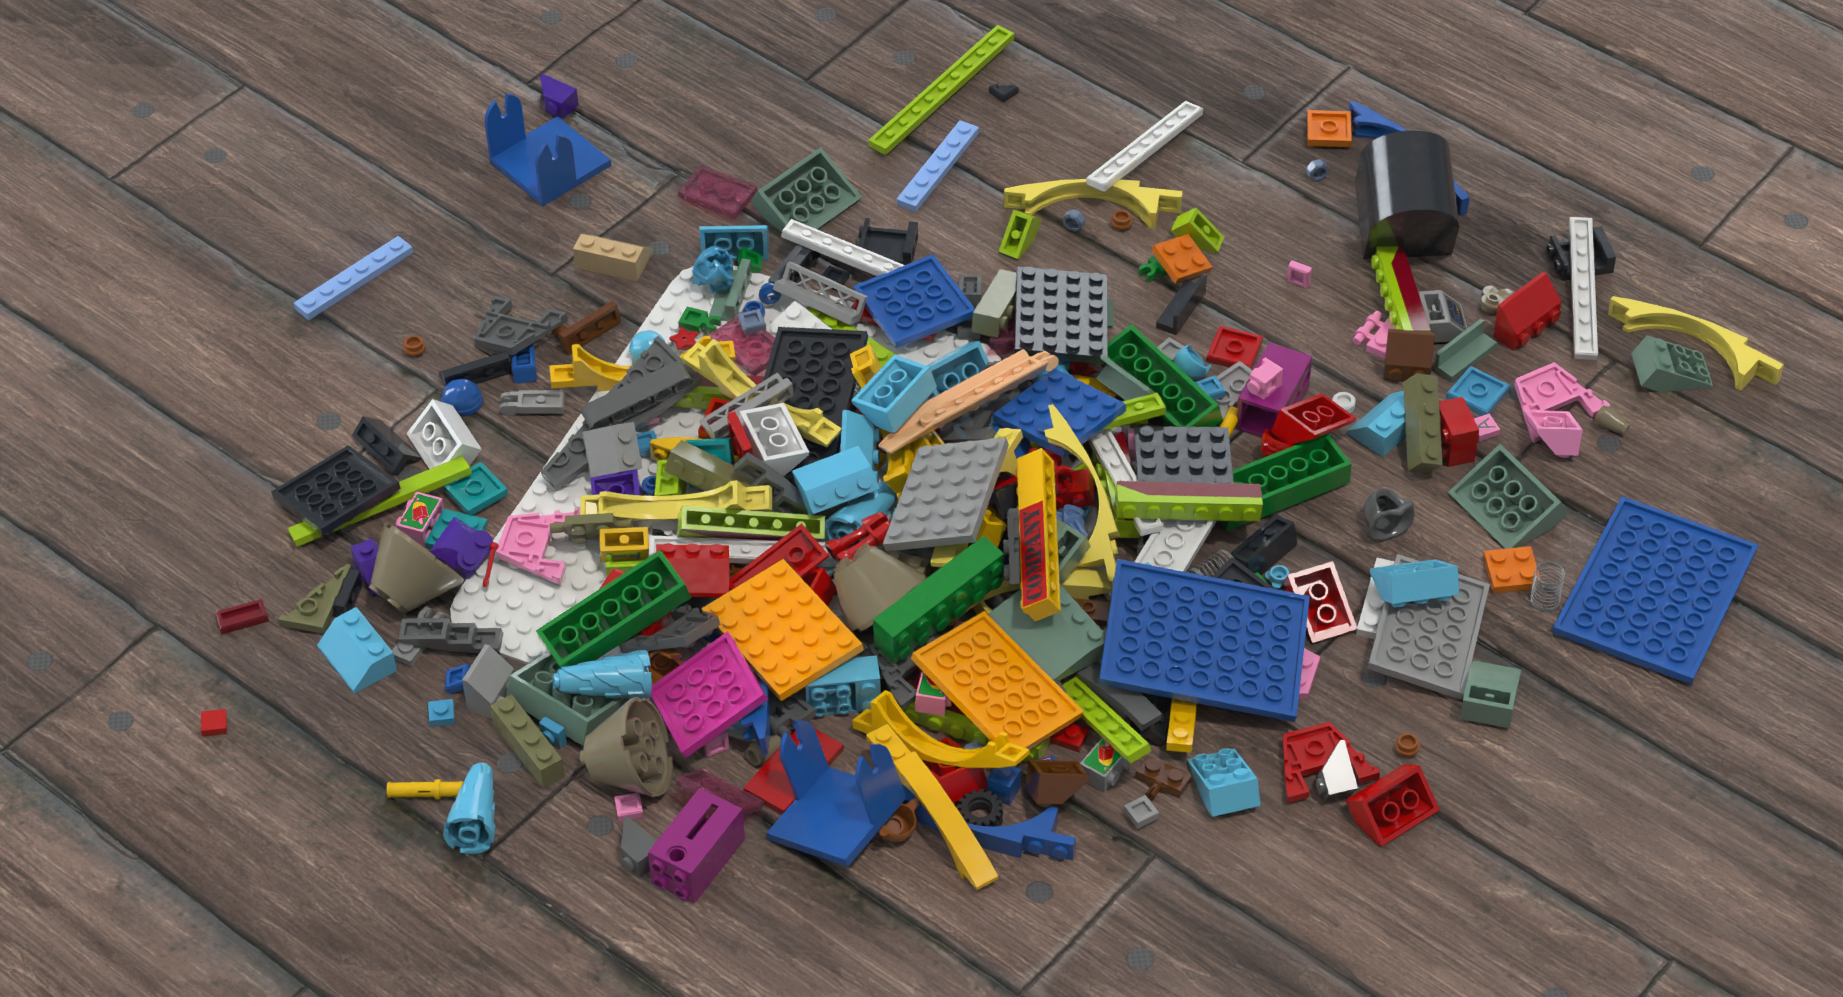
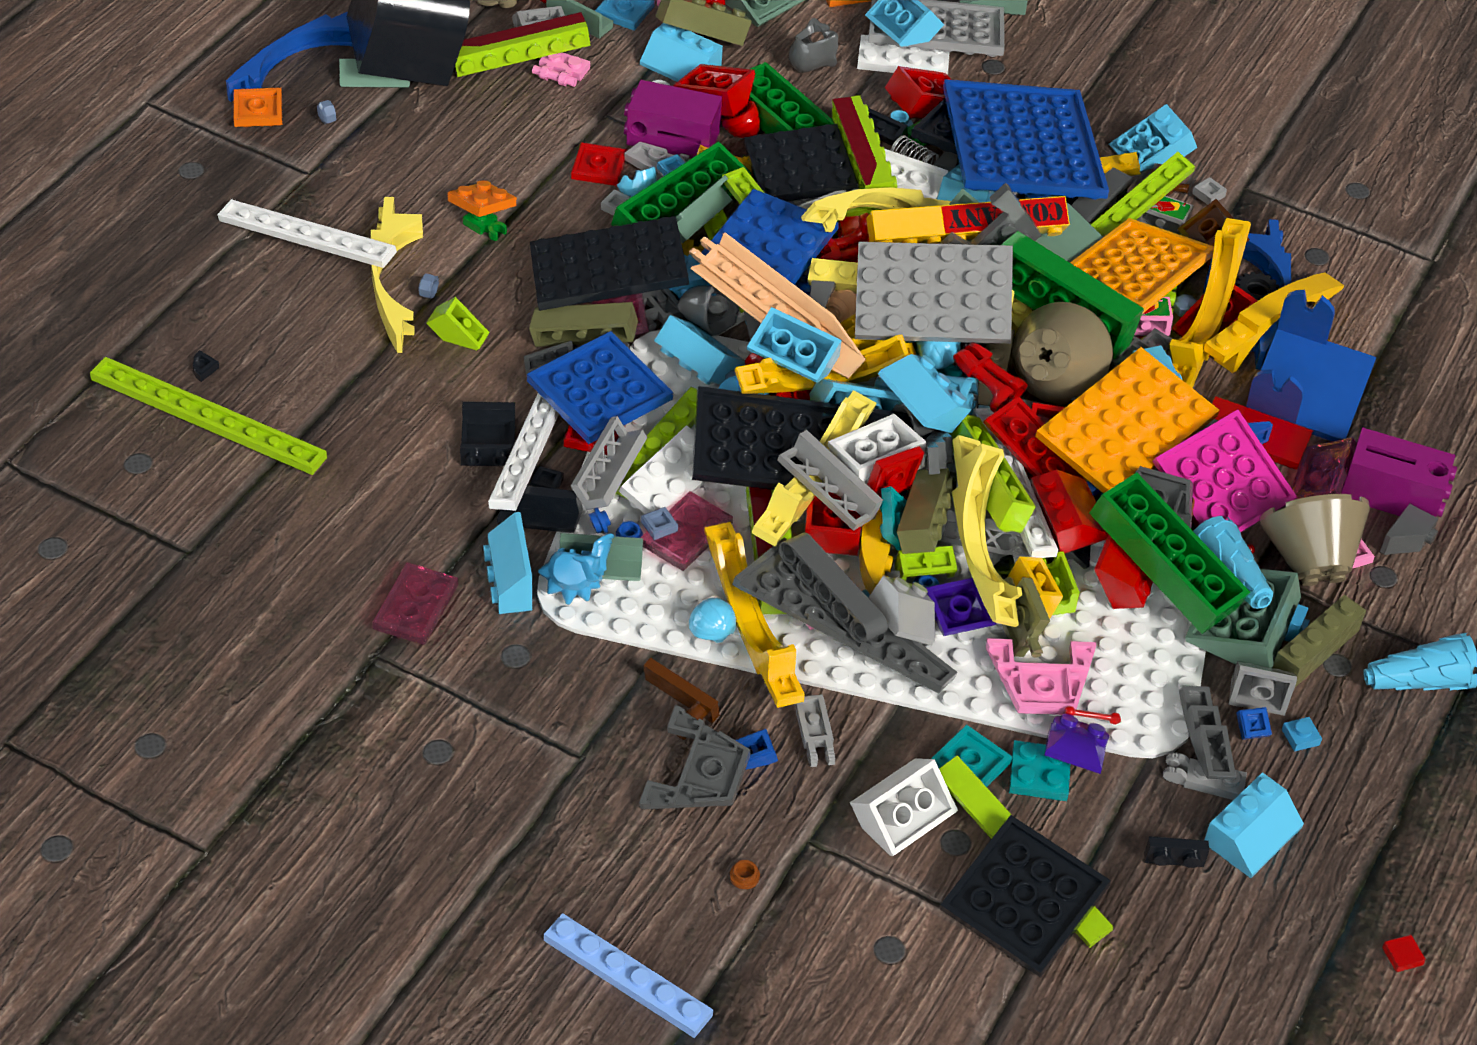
camera: 105 degrees left, 0 degrees up
(241, 616) = (1238, 965): dark red tile -> none
(317, 608) = (1203, 883): olive wing -> none
(364, 559) = (1123, 839): dark purple slope -> none
(384, 444) = (924, 868): black panel -> none
(408, 572) = (1146, 774): dark tan cone -> none
(420, 516) = (1038, 802): brick -> none
(423, 789) = (1408, 714): yellow pin -> none
(463, 395) = (824, 804): blue hat -> none
(479, 370) = (775, 800): black panel -> none
(544, 160) = (374, 788): blue piece -> none
(558, 96) = (245, 800): dark purple slope -> none
(610, 257) = (544, 690): tan slope -> none
(681, 344) = (684, 598): red plate -> none
(696, 320) = (657, 582): green plate -> none
(756, 259) = (539, 554): green plate -> none
(807, 193) = (415, 517): sand green slope -> none
(937, 166) = (342, 410): light blue plate -> none
(1121, 220) = (420, 252): dark orange plate -> none
(1182, 305) = (548, 196): black panel -> none
(1199, 229) = (435, 193): lime slope -> none
(1265, 379) = (691, 99): bright pink brick -> none
(1299, 274) = (489, 118): bright pink tile -> none
(1307, 752) = (1103, 95): red wing -> none
(1337, 774) = (1125, 71): slope -> none
(1393, 804) = (1136, 45): red slope -> none
(1407, 354) = (605, 40): reddish brown slope -> none
(1407, 745) = (1068, 41): dark orange plate -> none

